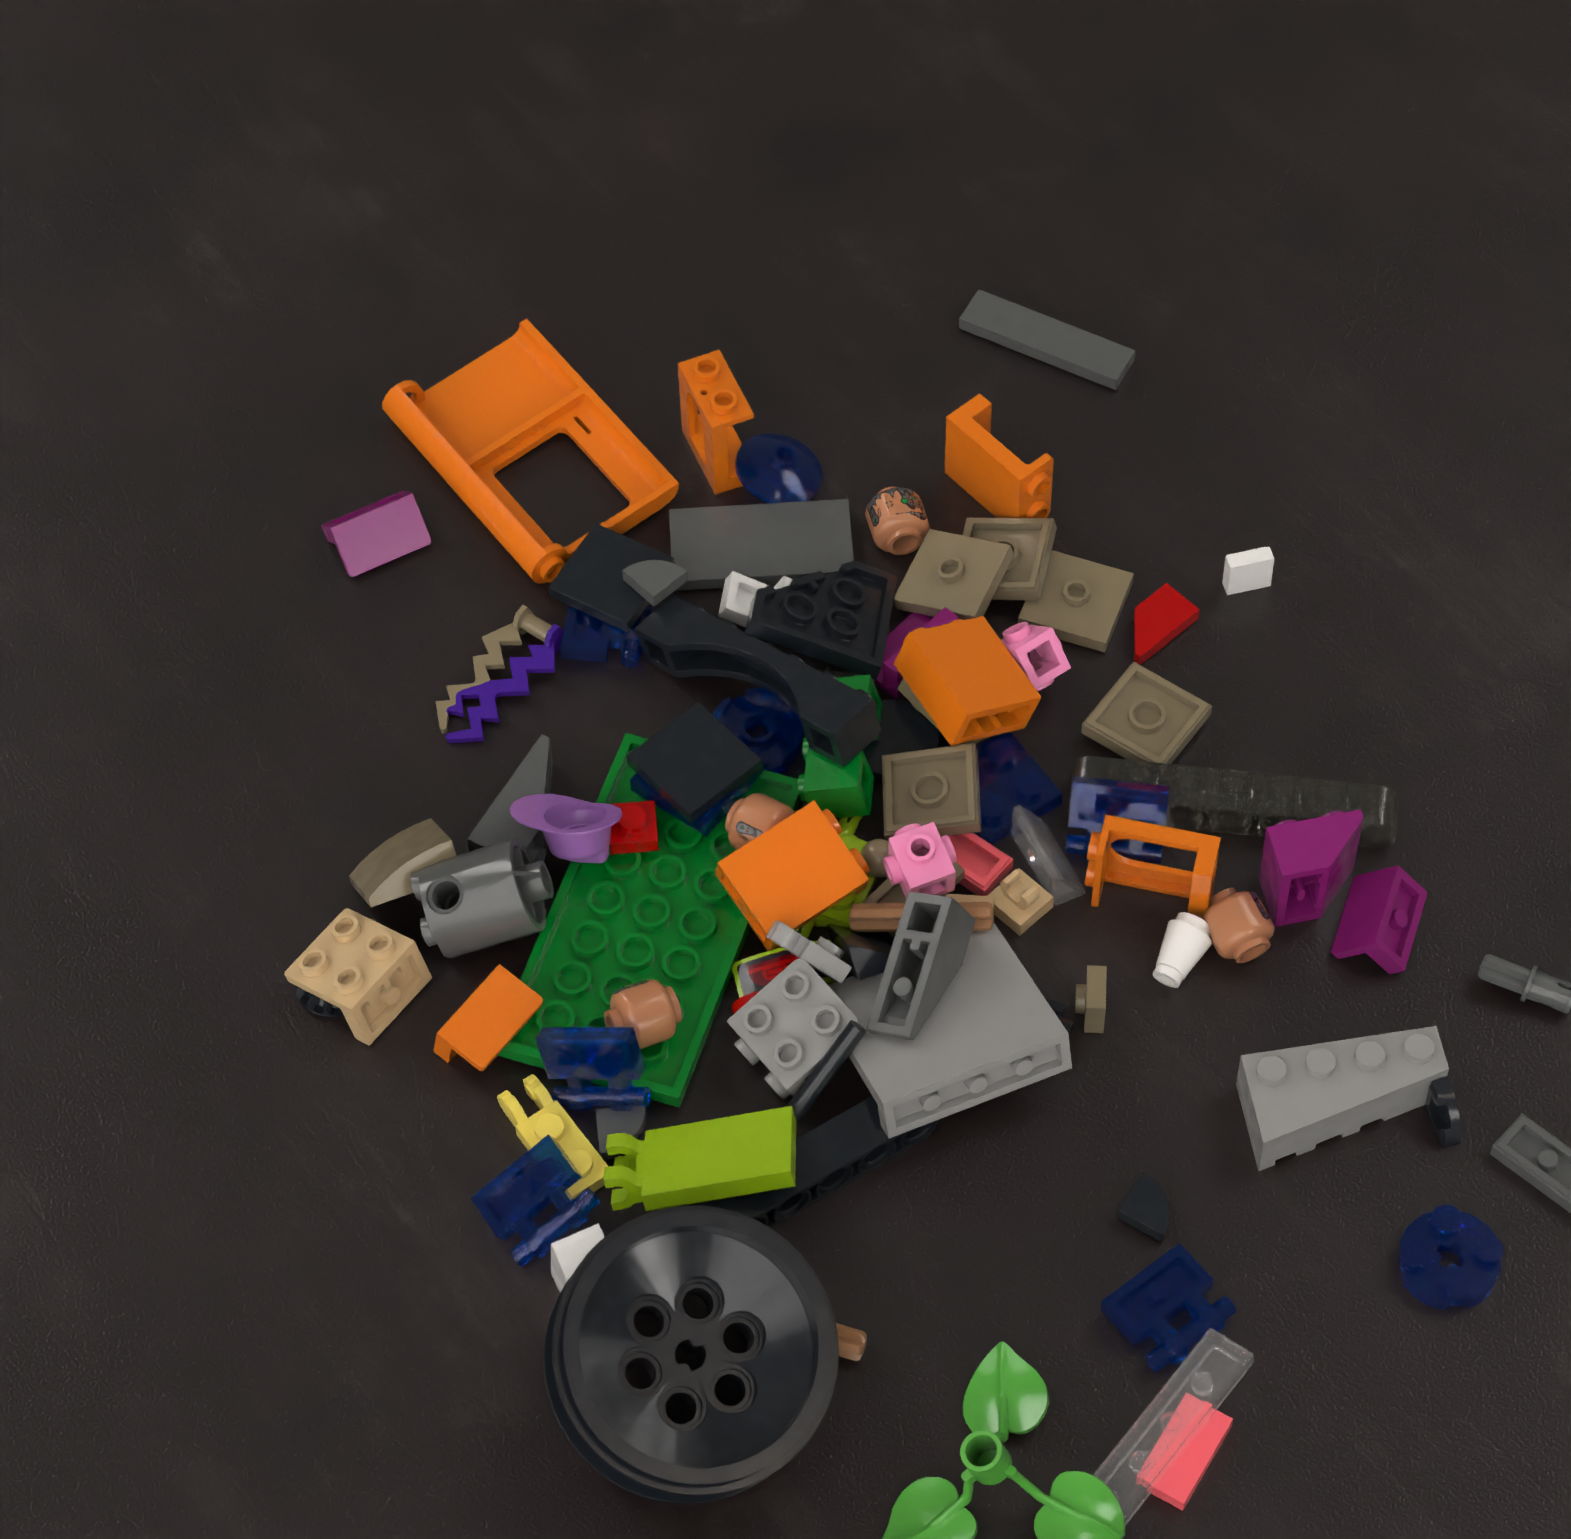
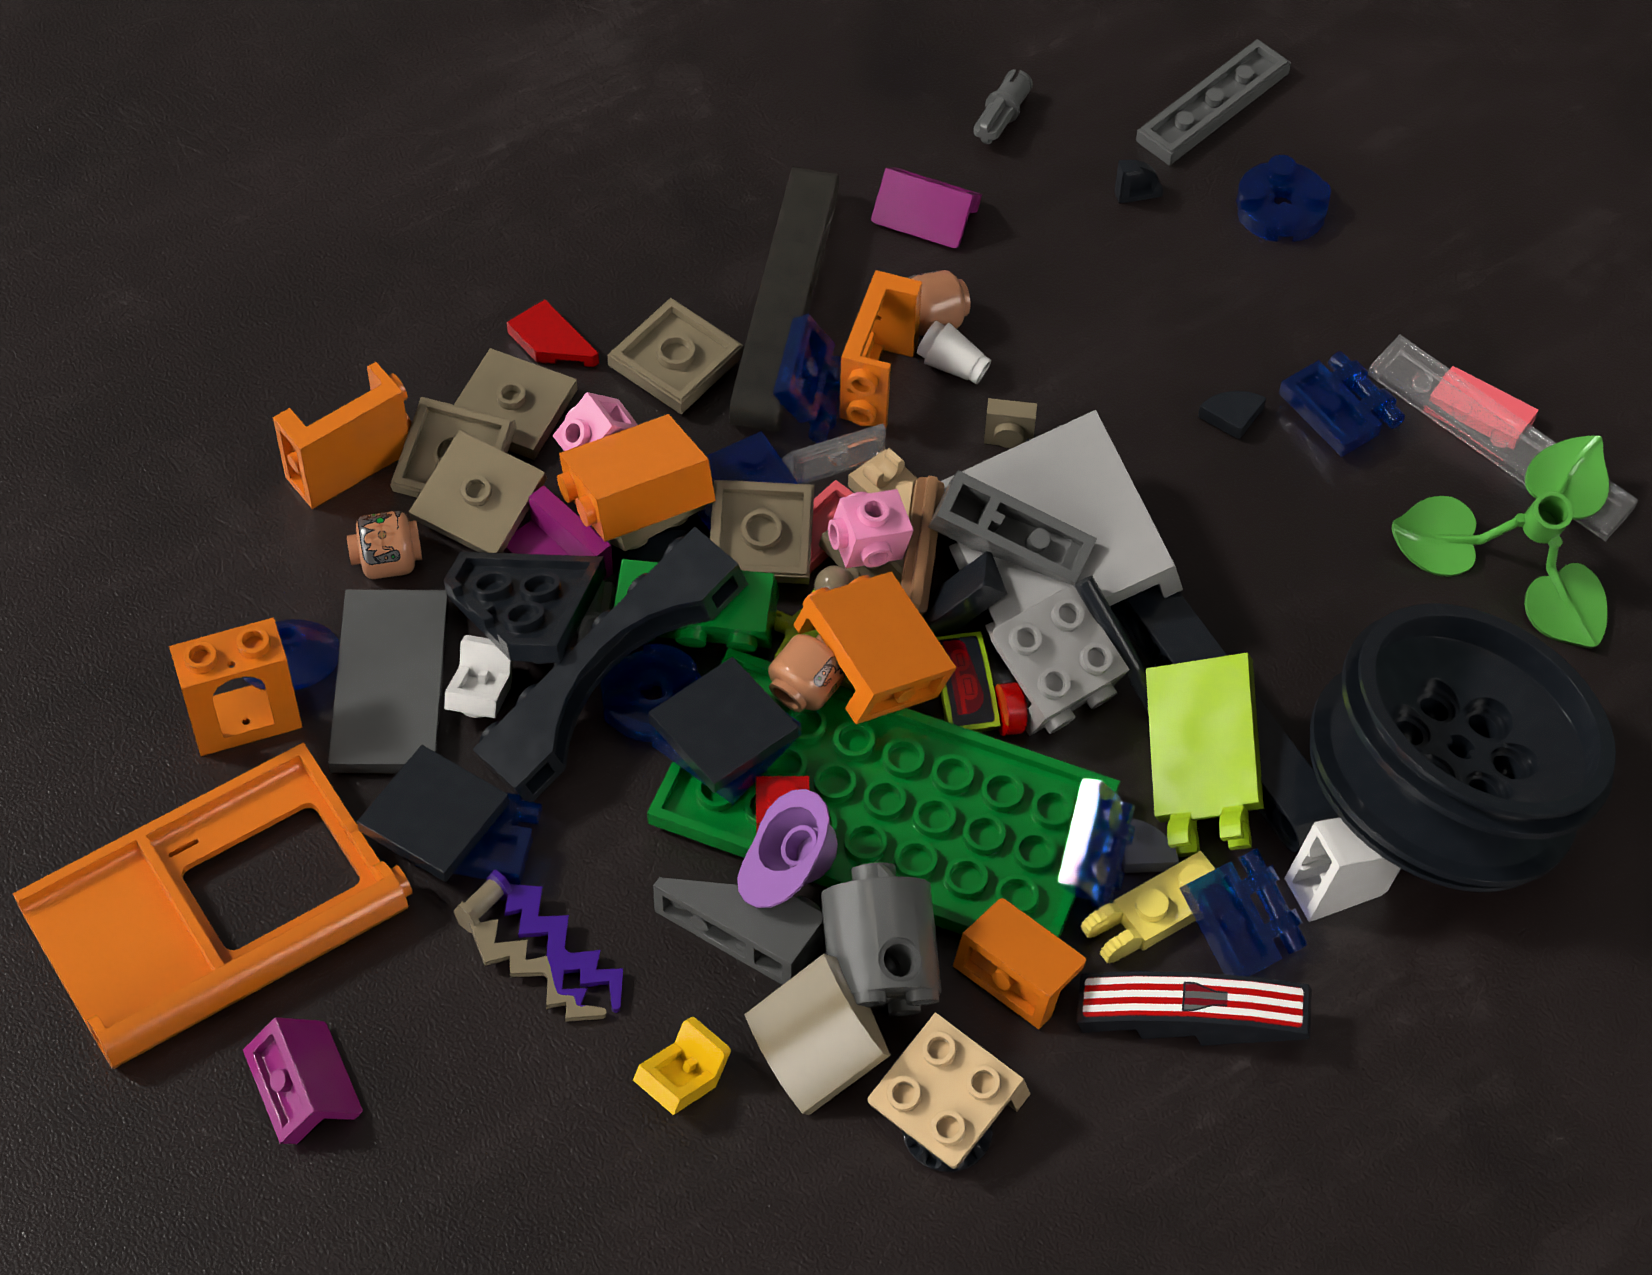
camera: 90 degrees left, 0 degrees up
(378, 779) = (684, 1068): none -> yellow bracket
(444, 1163) = (1203, 1005): none -> slope
(647, 1008) = (1036, 792): nougat head -> none
(655, 579) = (458, 757): dark grey tile -> none
(821, 956) = (975, 626): light grey plate -> none
(1047, 339) = (149, 399): dark grey tile -> none
(1248, 570) = (504, 253): white tile -> none
(1308, 864) = (881, 225): magenta slope -> none
(1334, 1088) = (1122, 257): light grey wedge -> none

